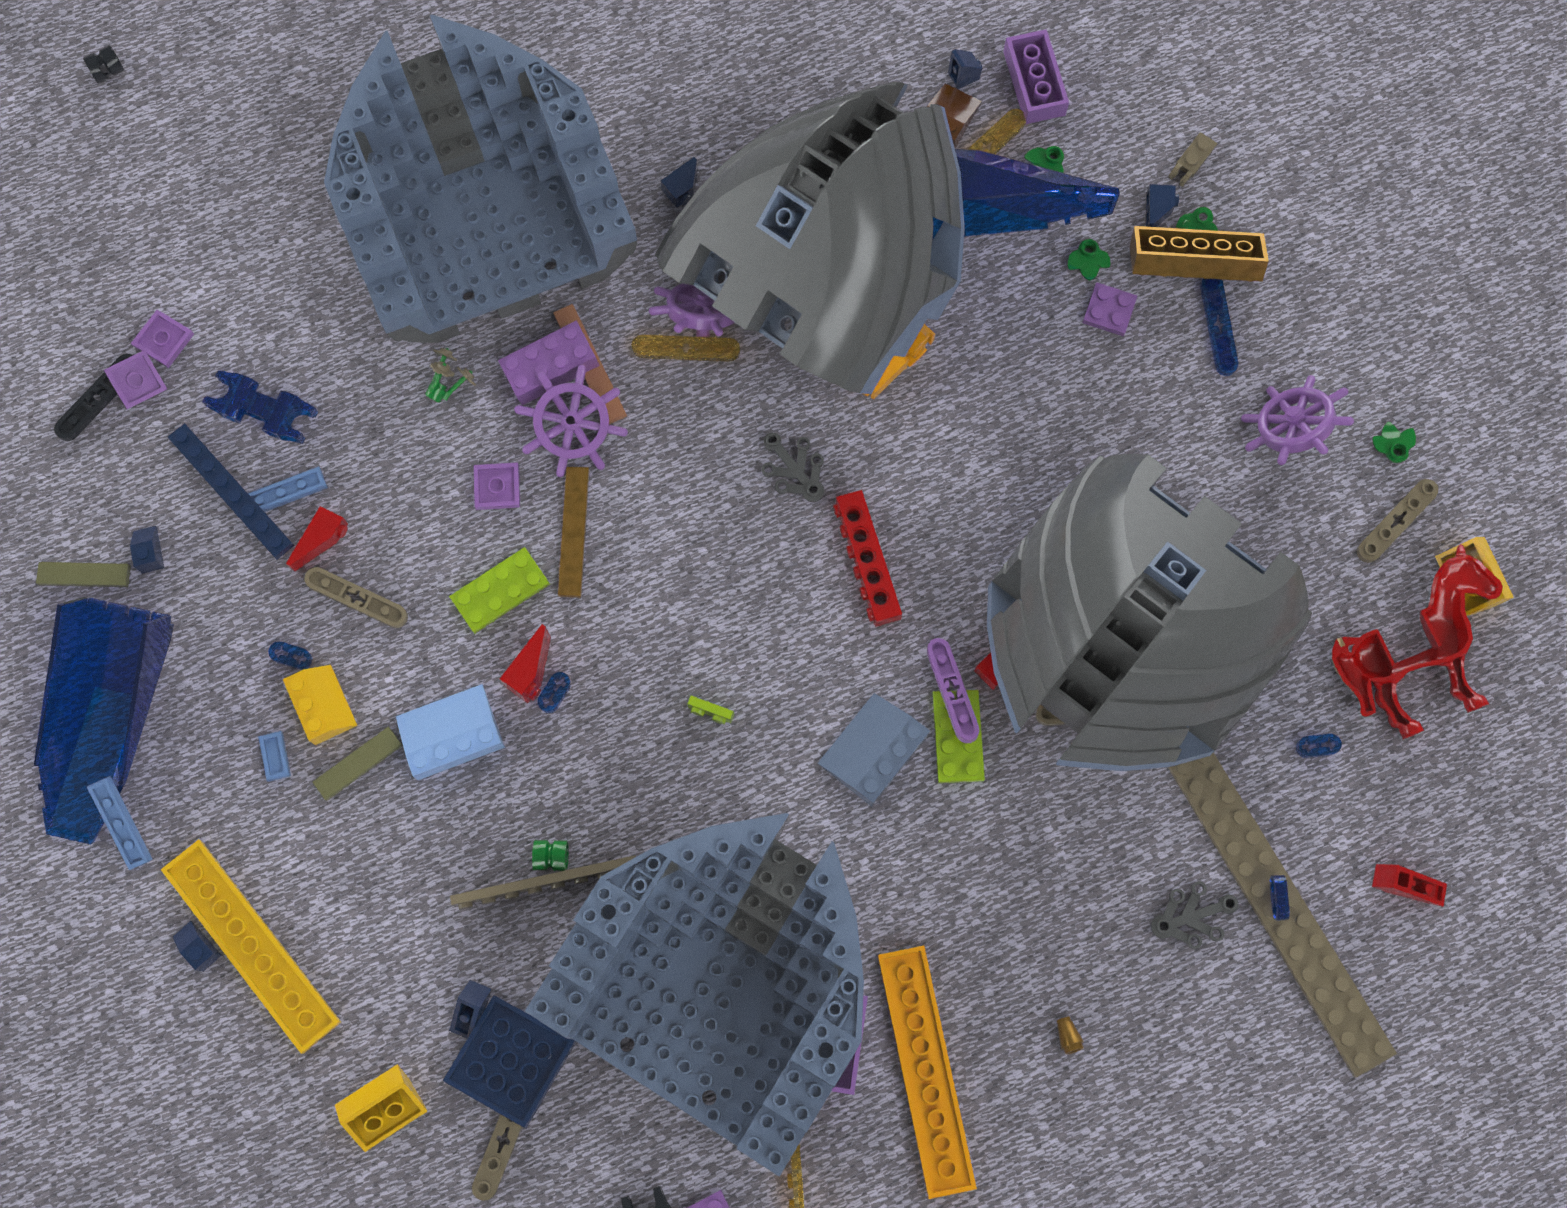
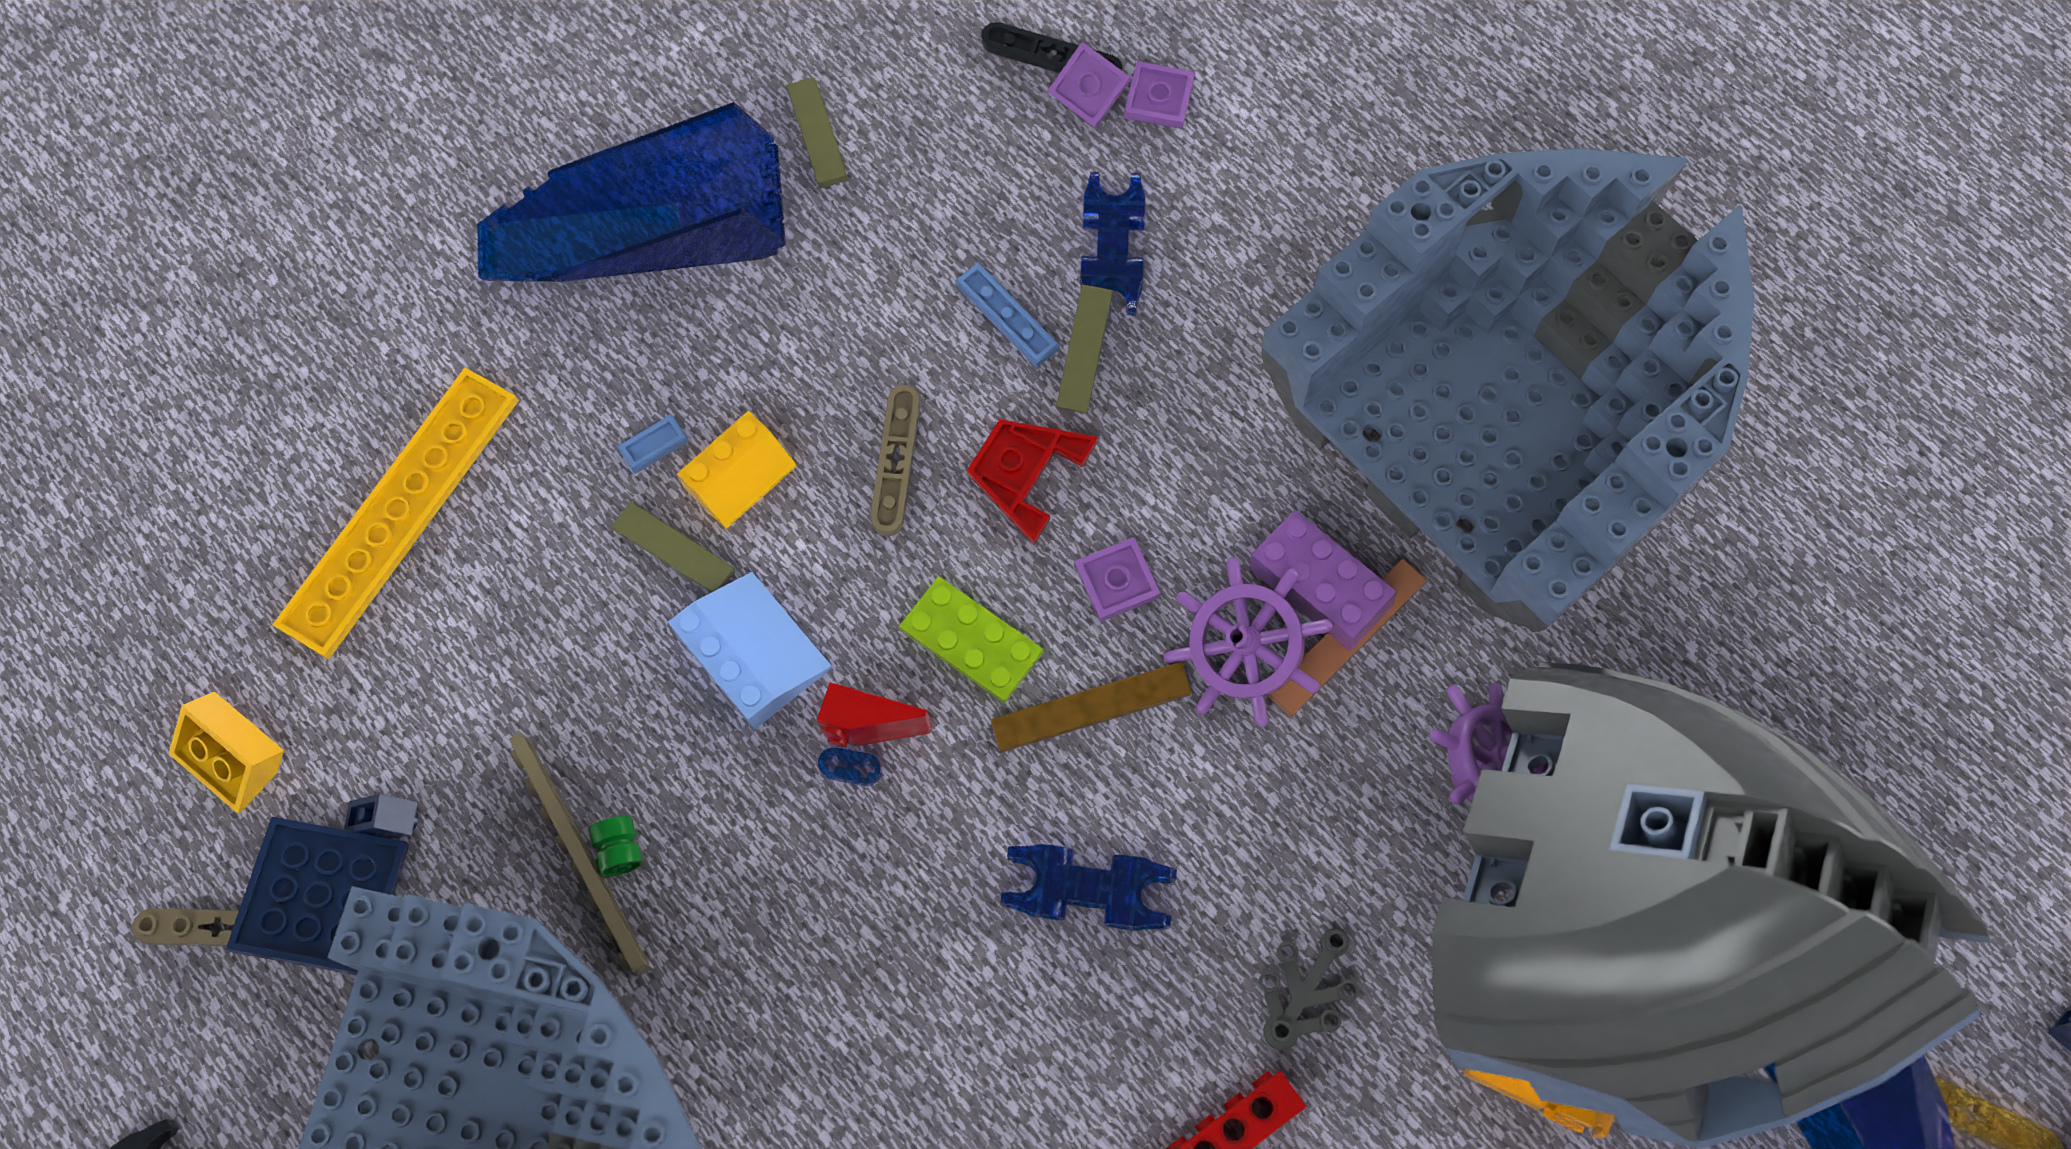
camera: 75 degrees right, 5 degrees down
(119, 823) = (507, 296): medium blue tile -> none
(146, 550) = (871, 187): dark blue slope -> none
(195, 947) = (378, 446): dark blue slope -> none
(231, 491) = (983, 255): dark blue plate -> none
(289, 660) = (783, 410): clear blue beam -> none
(319, 536) = (965, 382): red slope -> none
(330, 450) = (1084, 349): none -> olive tile
(391, 524) = (1014, 461): none -> red wing
(436, 389) = (1226, 449): plant -> none
(664, 348) = (1413, 730): clear yellow piece -> none
(679, 585) = (1064, 884): none -> clear blue piece
(681, 183) = (1682, 662): dark blue slope -> none
(700, 707) = (892, 981): lime plate -> none
(959, 109) = (2004, 1038): reddish brown slope -> none

